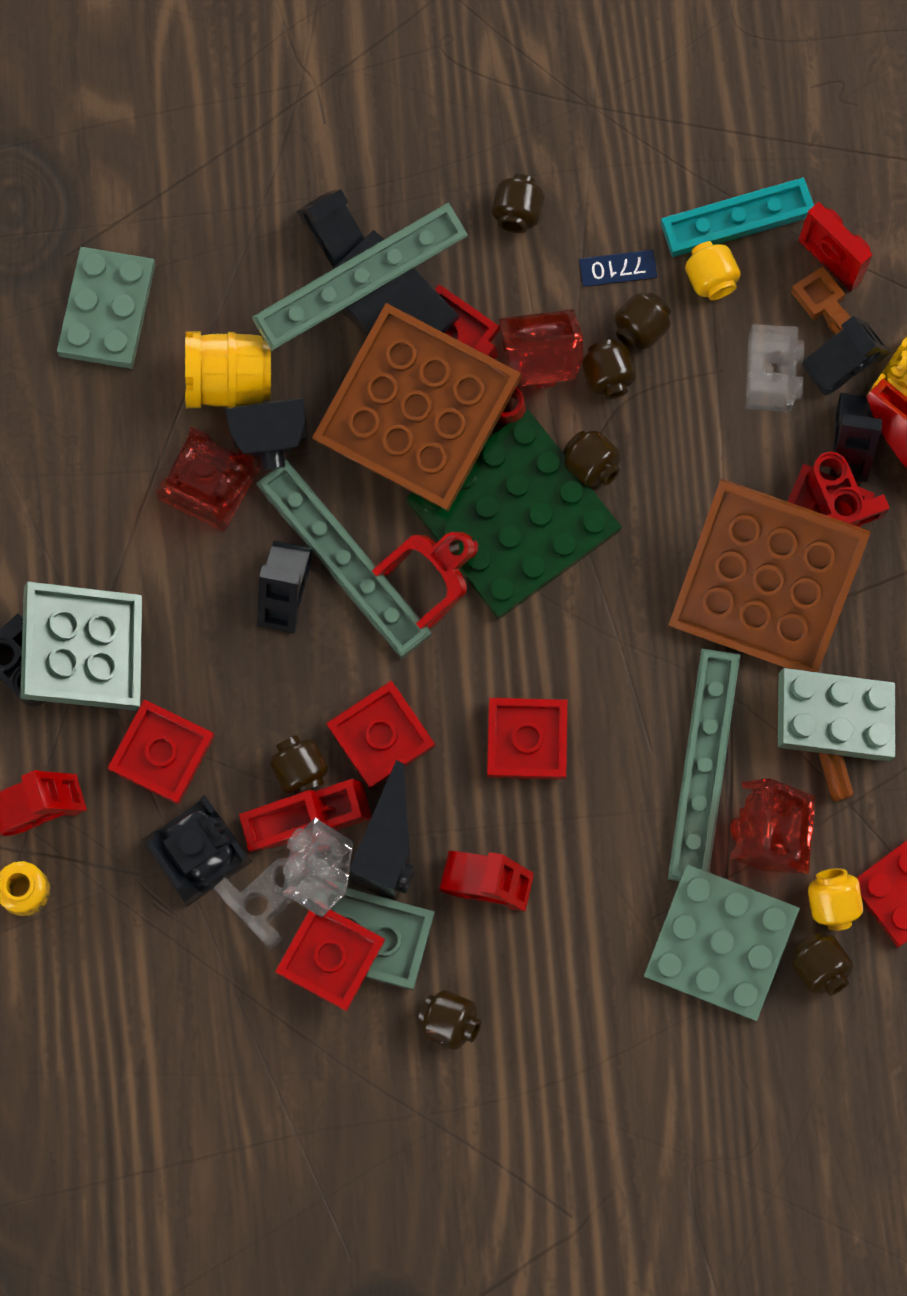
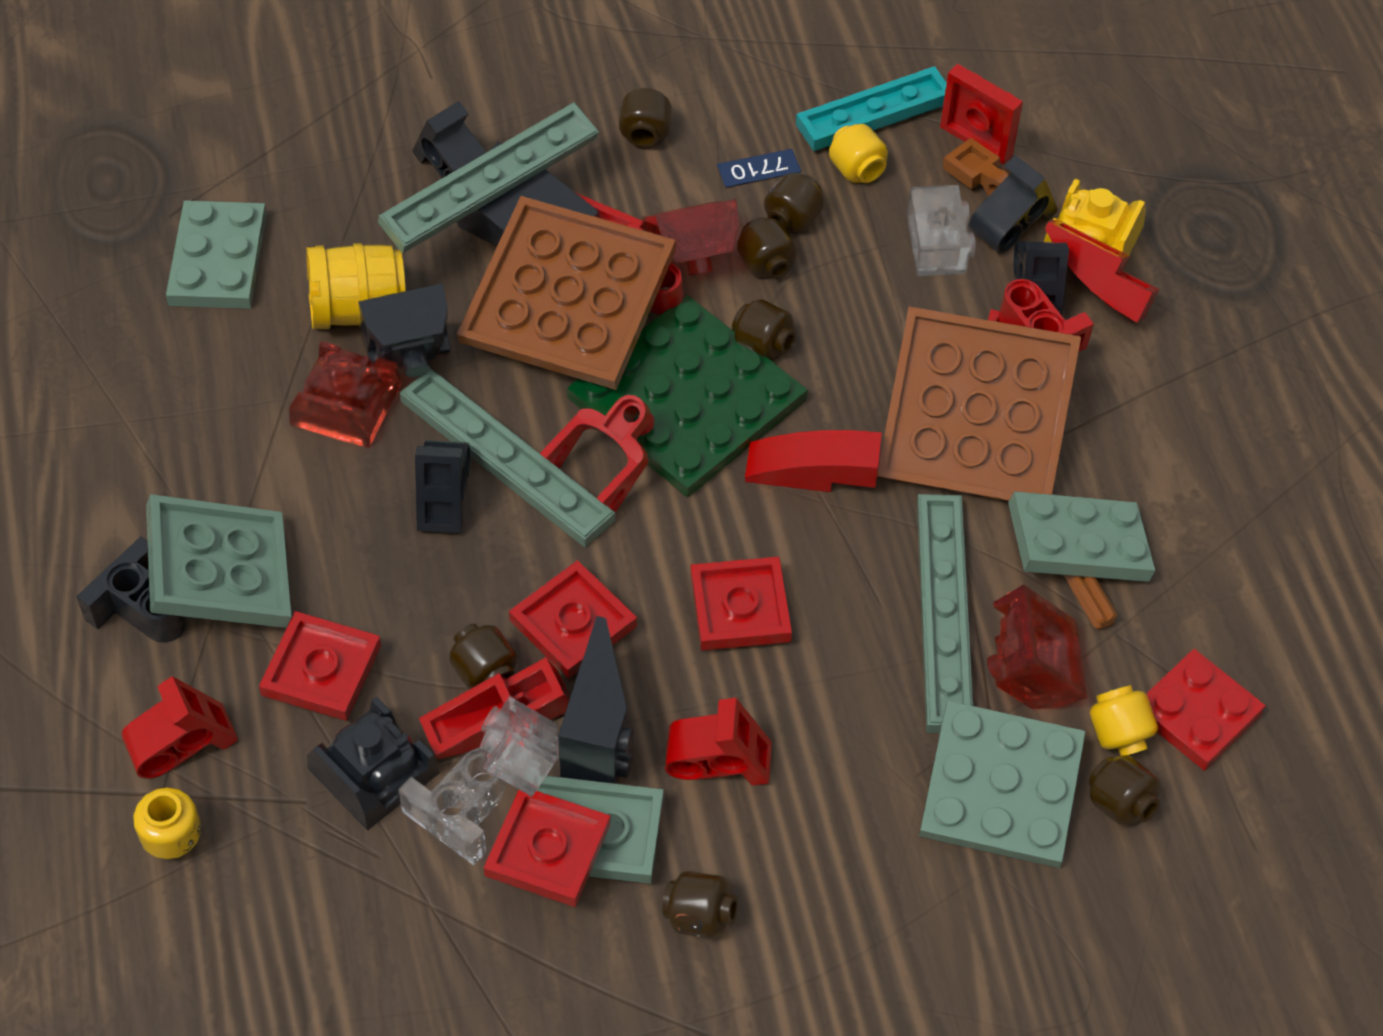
camera: 10 degrees left, 20 degrees down
(615, 603) = (815, 459): none -> red slope

